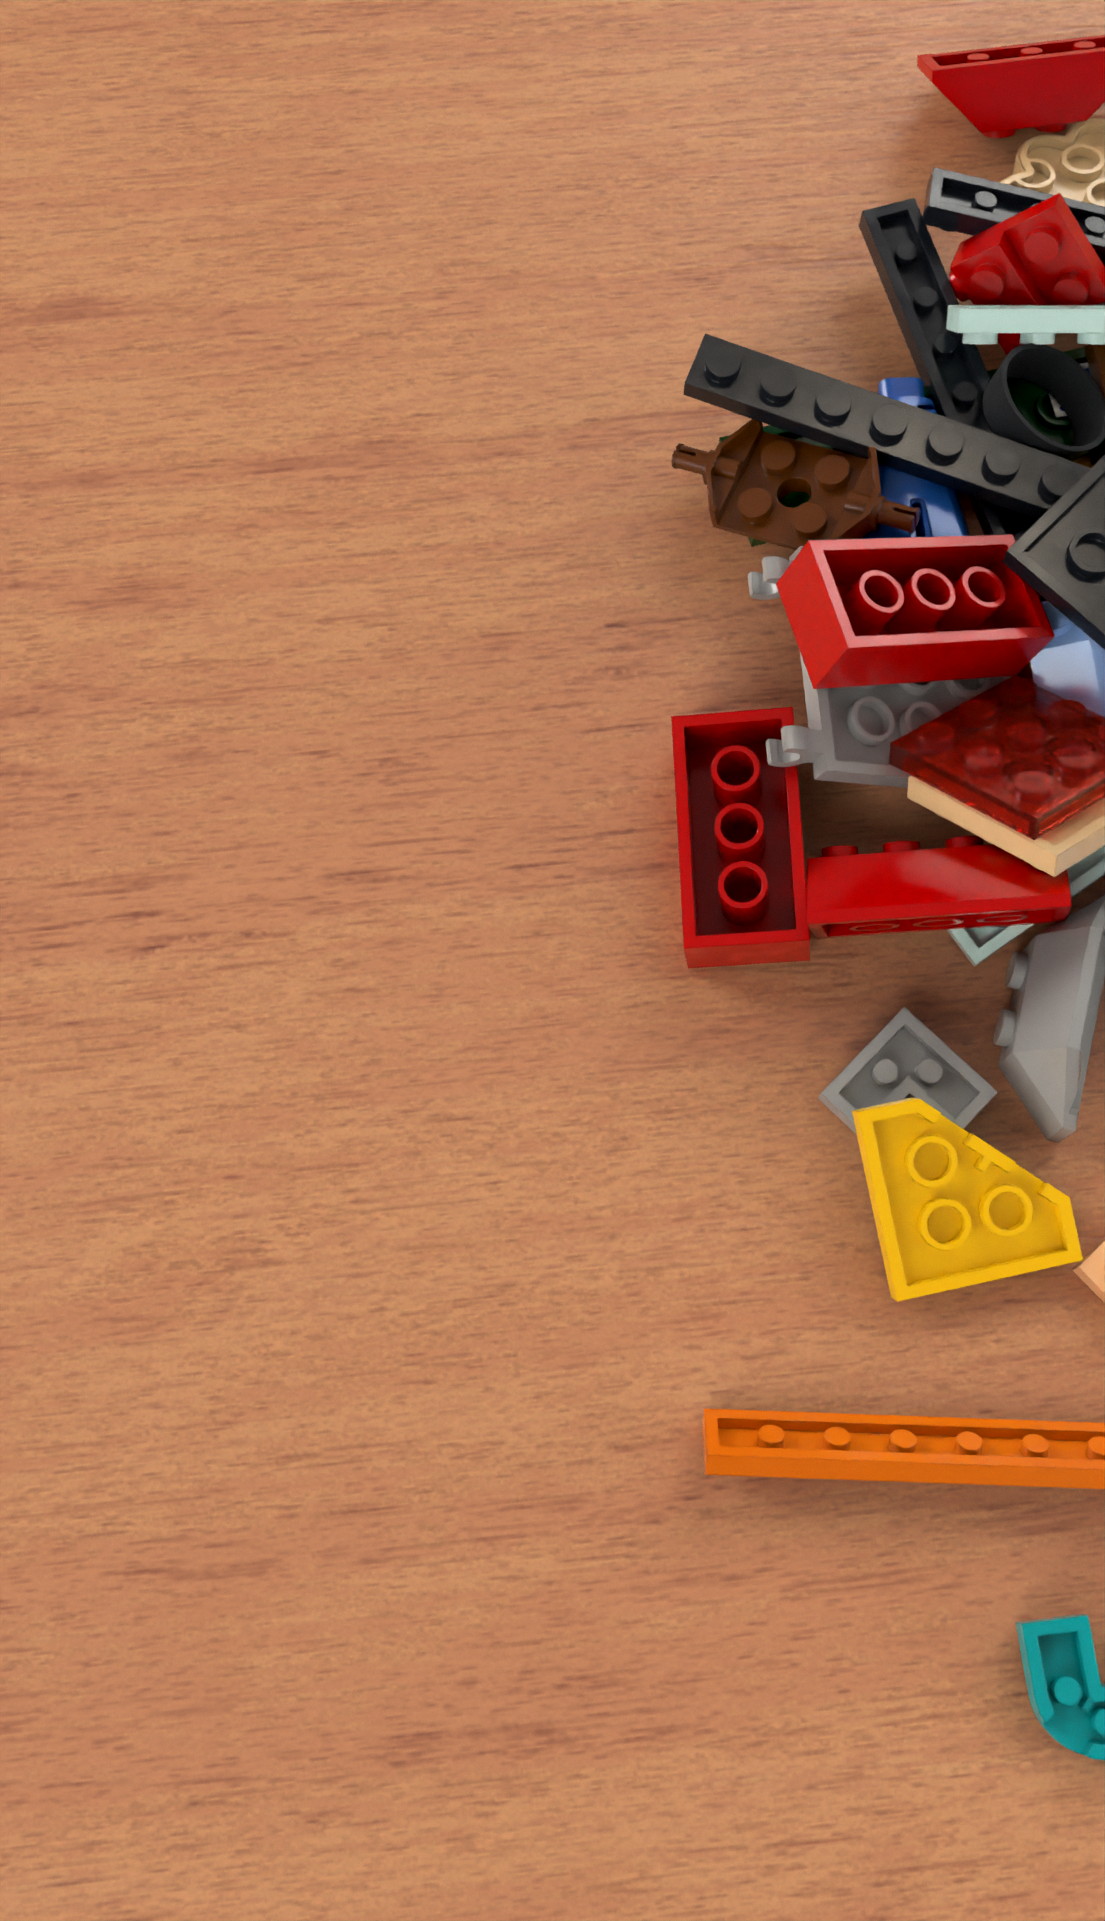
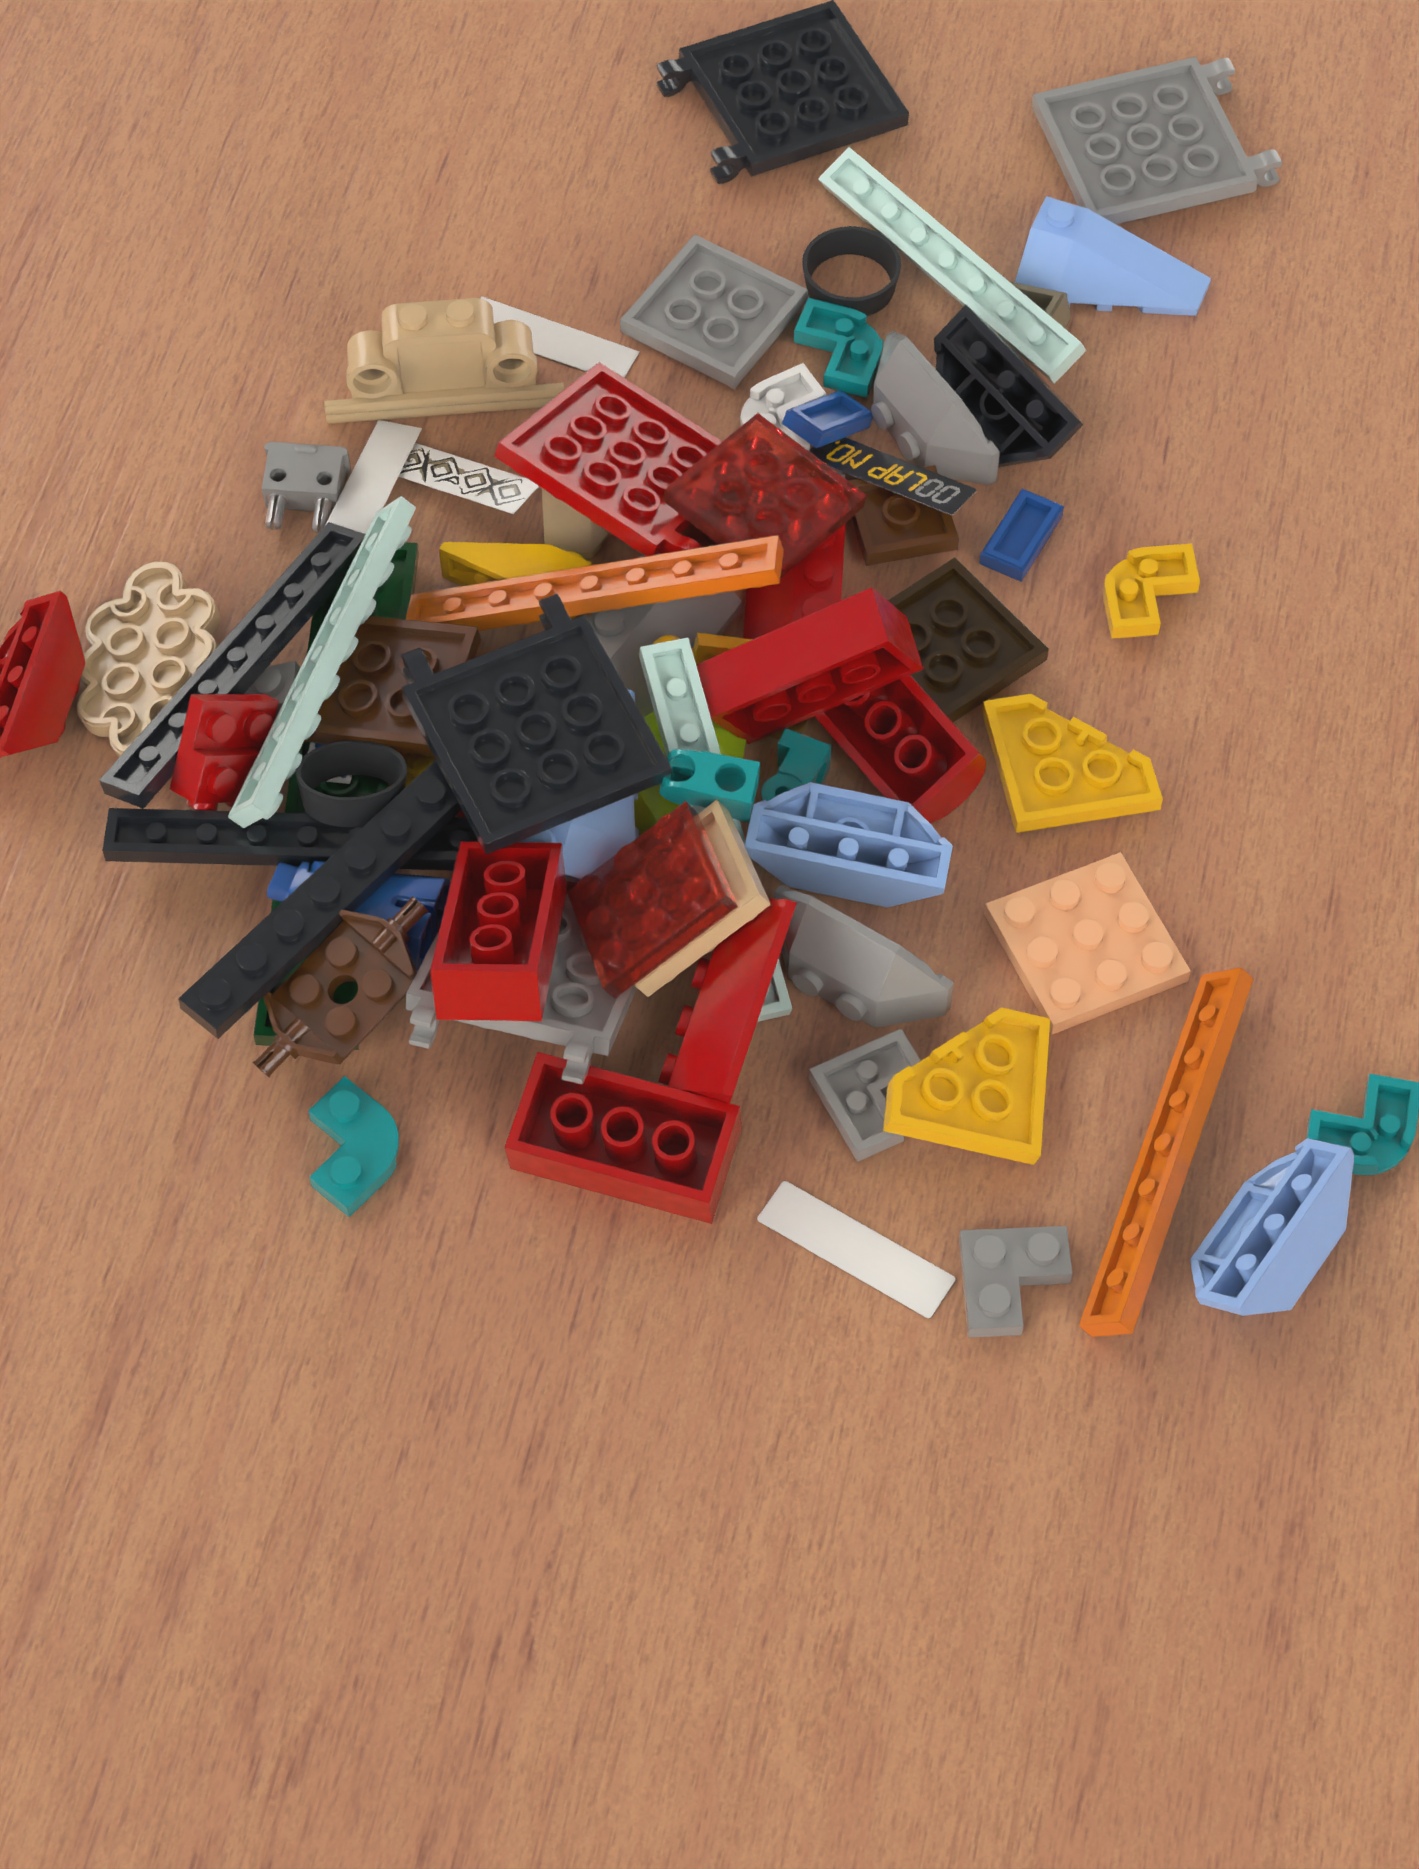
camera: 70 degrees left, 15 degrees down
(644, 596) = (367, 1146): none -> teal plate
(713, 1133) = (856, 1249): none -> white sticker
(745, 1291) = (1002, 1261): none -> light grey plate
(896, 1612) = (1276, 1232): none -> light blue wedge

